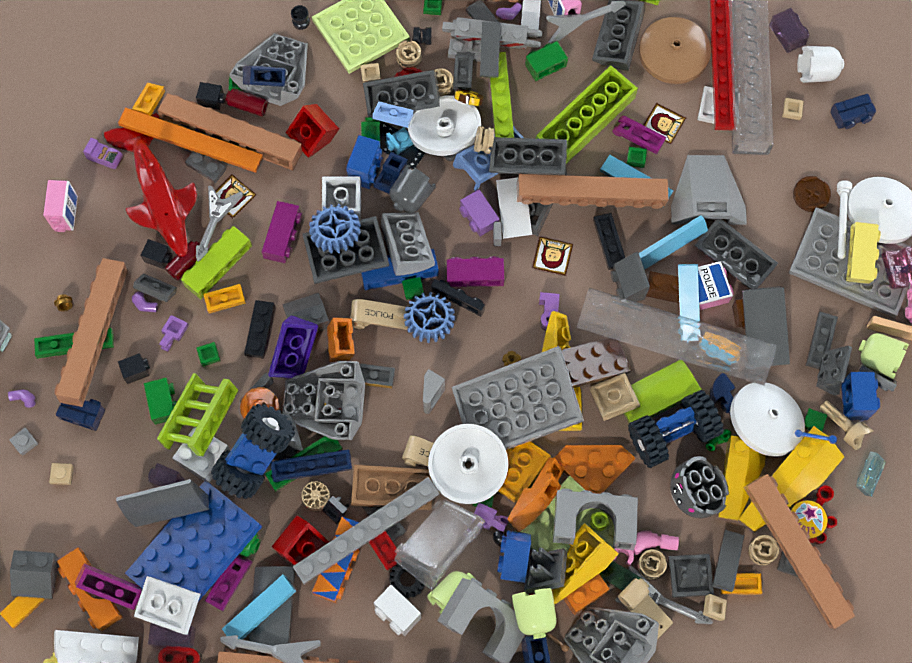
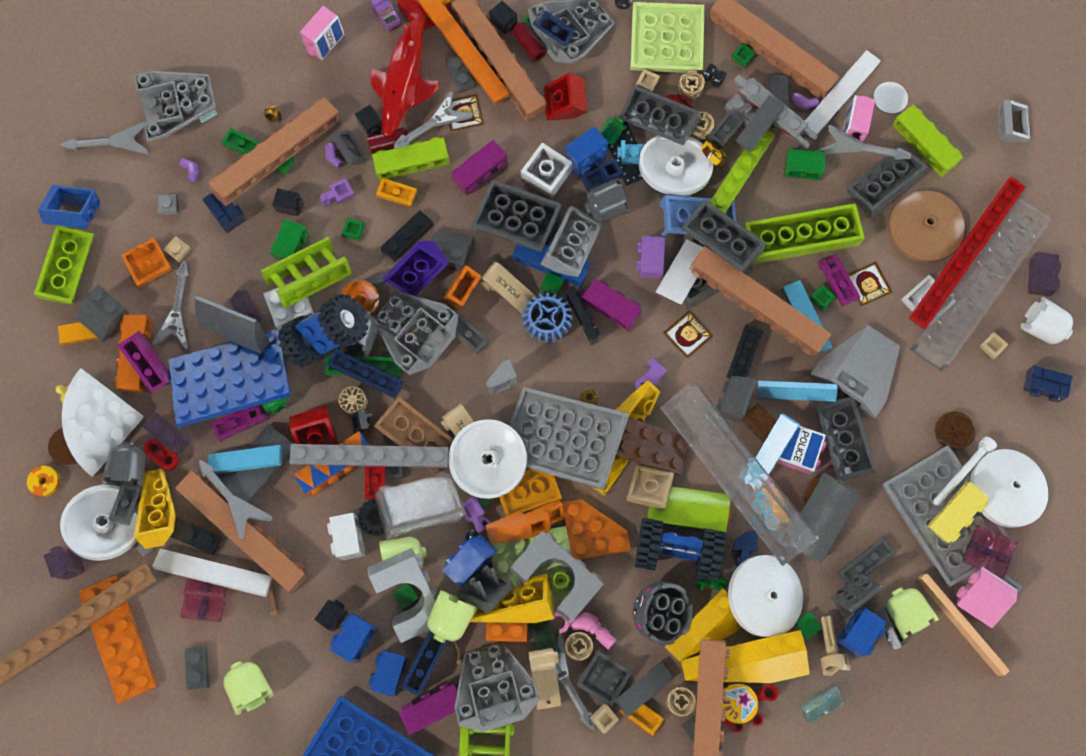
camera: 40 degrees right, 5 degrees up
(42, 503) = (146, 262): none -> orange plate
(105, 538) = (174, 322): none -> light grey piece
(167, 605) = (175, 407): white tile -> none
(321, 229) = (520, 201): medium blue gear -> none
(393, 114) = (639, 127): light blue plate -> none
(480, 626) = (405, 595): none -> green tile
(484, 139) = (698, 199): tan wheel -> none
(497, 234) = (653, 285): light grey tile -> none
(832, 439) = (805, 652): blue hinge -> none

